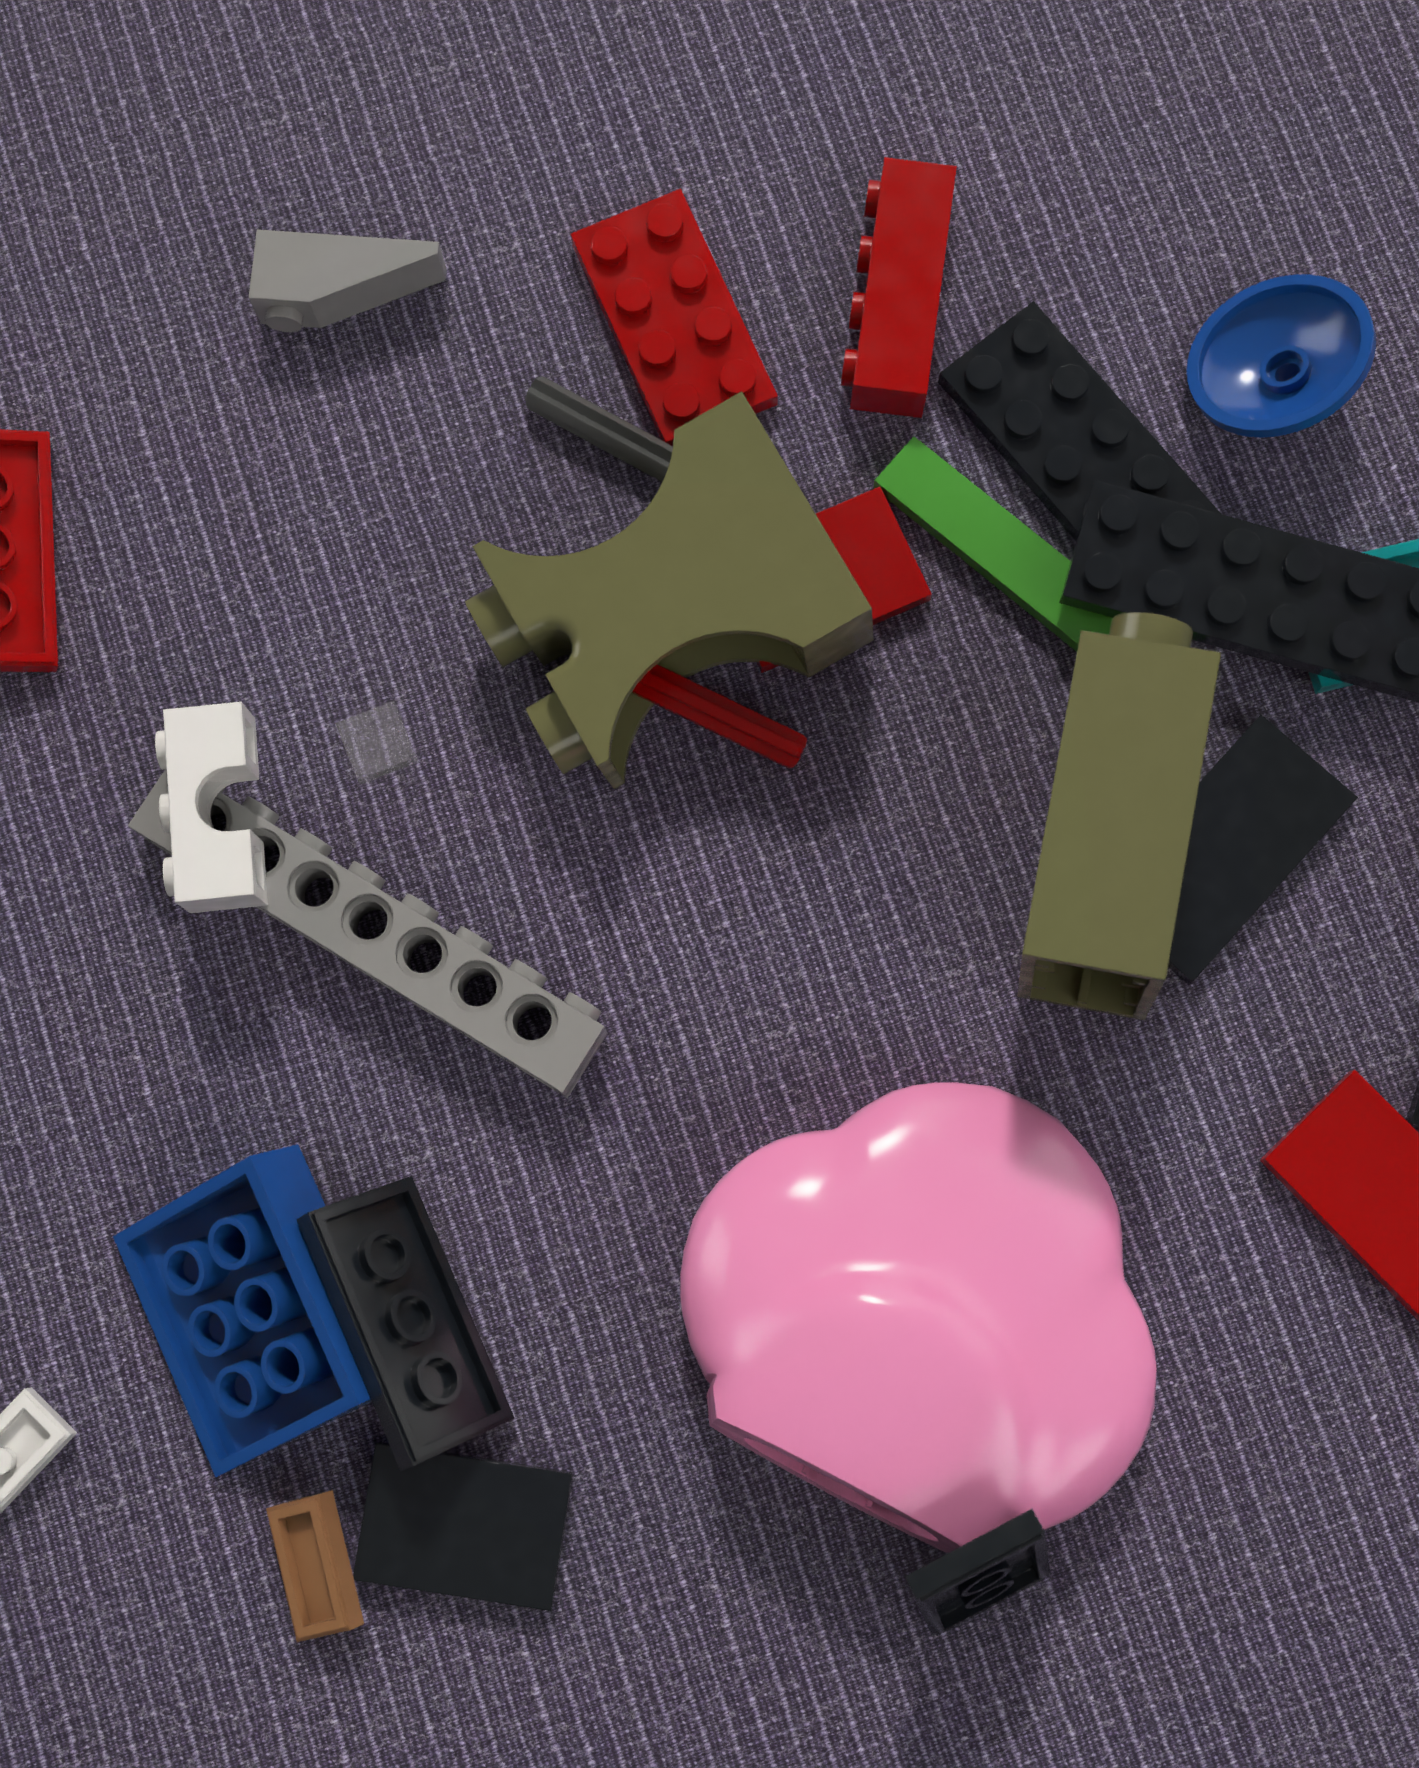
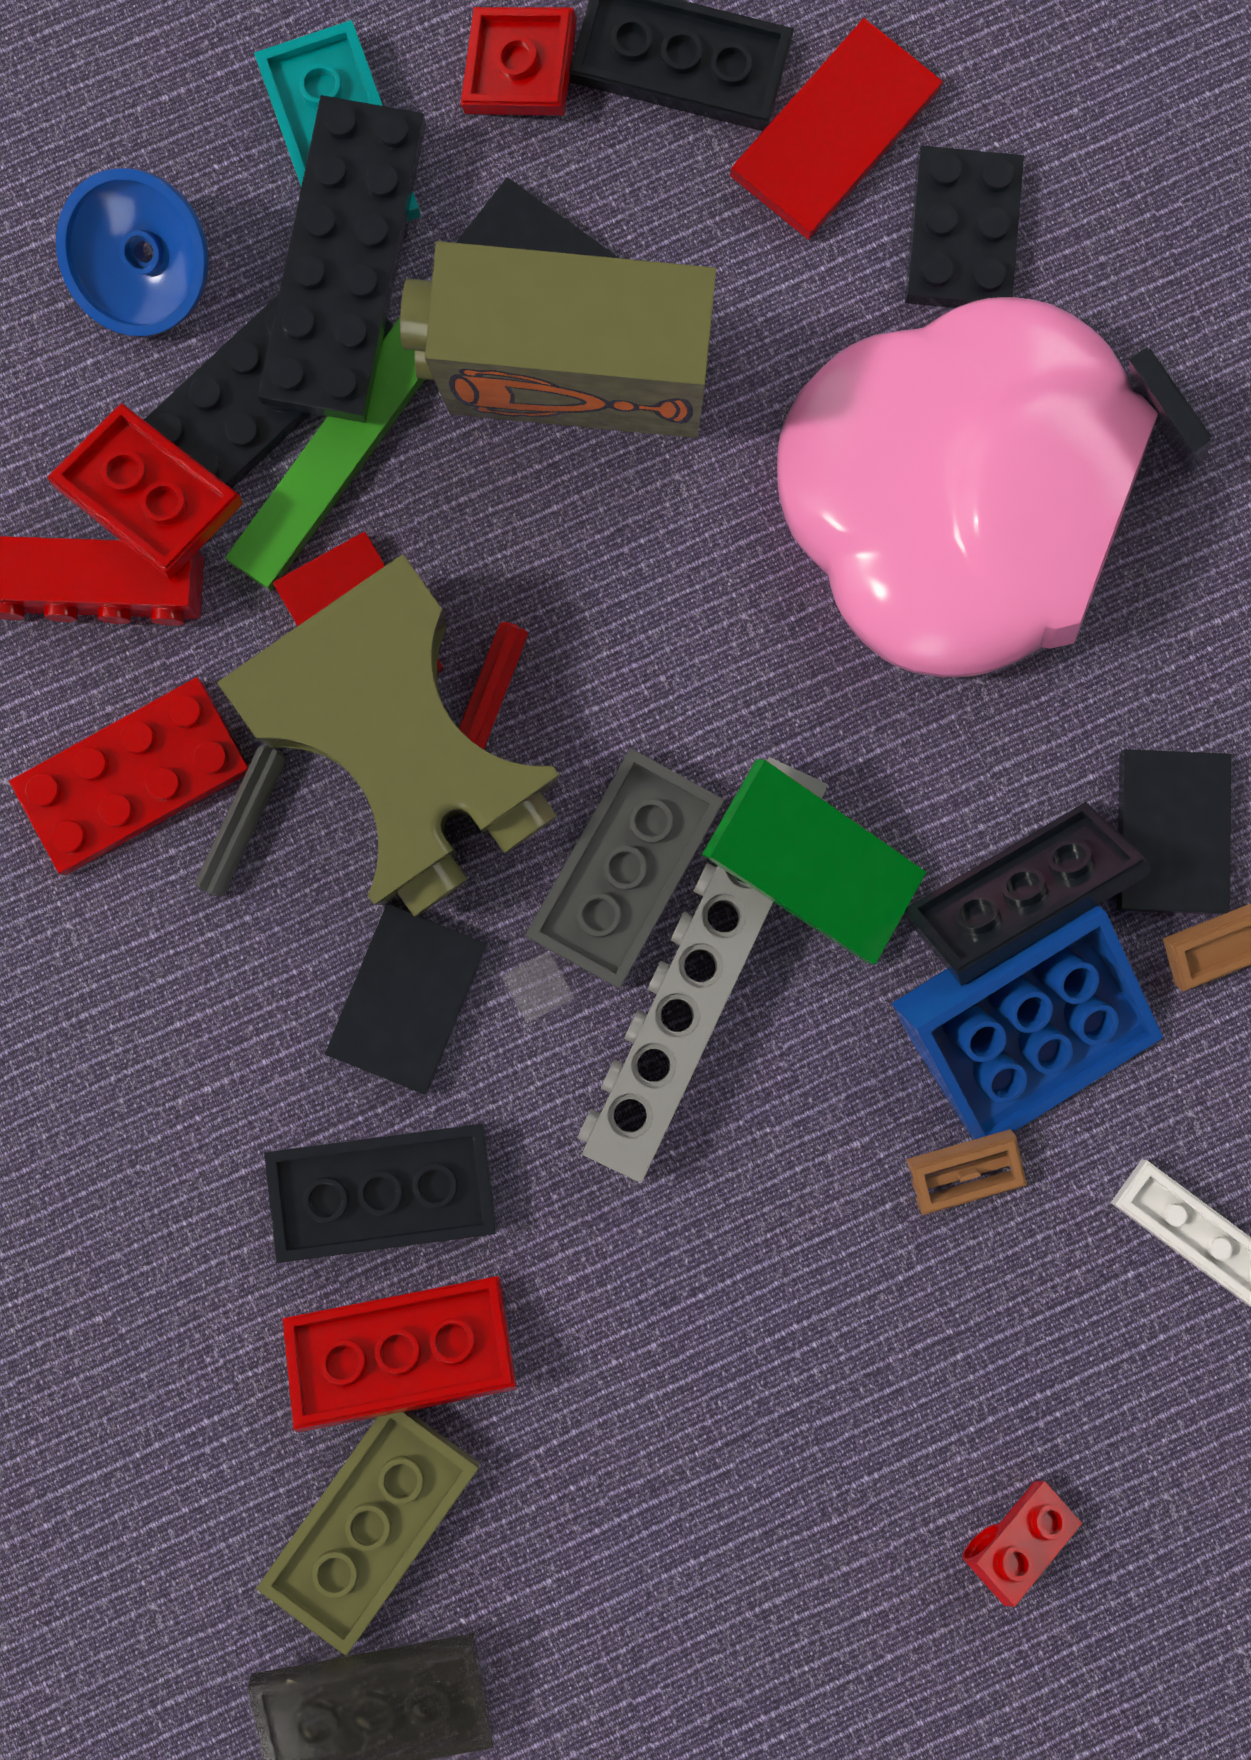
camera: 100 degrees left, 5 degrees up
(99, 1211) = (926, 1174): none -> medium nougat tile
(168, 547) = (380, 1193): none -> black plate
(203, 754) = (576, 1121): white arch -> none
(330, 277) = (117, 1087): light grey slope -> none
(381, 595) = (406, 999): none -> black tile
(469, 1065) = (814, 862): none -> green tile
(499, 851) = (624, 868): none -> dark grey plate
(991, 348) = (145, 490): none -> red tile
(1261, 1358) = (963, 226): none -> black plate

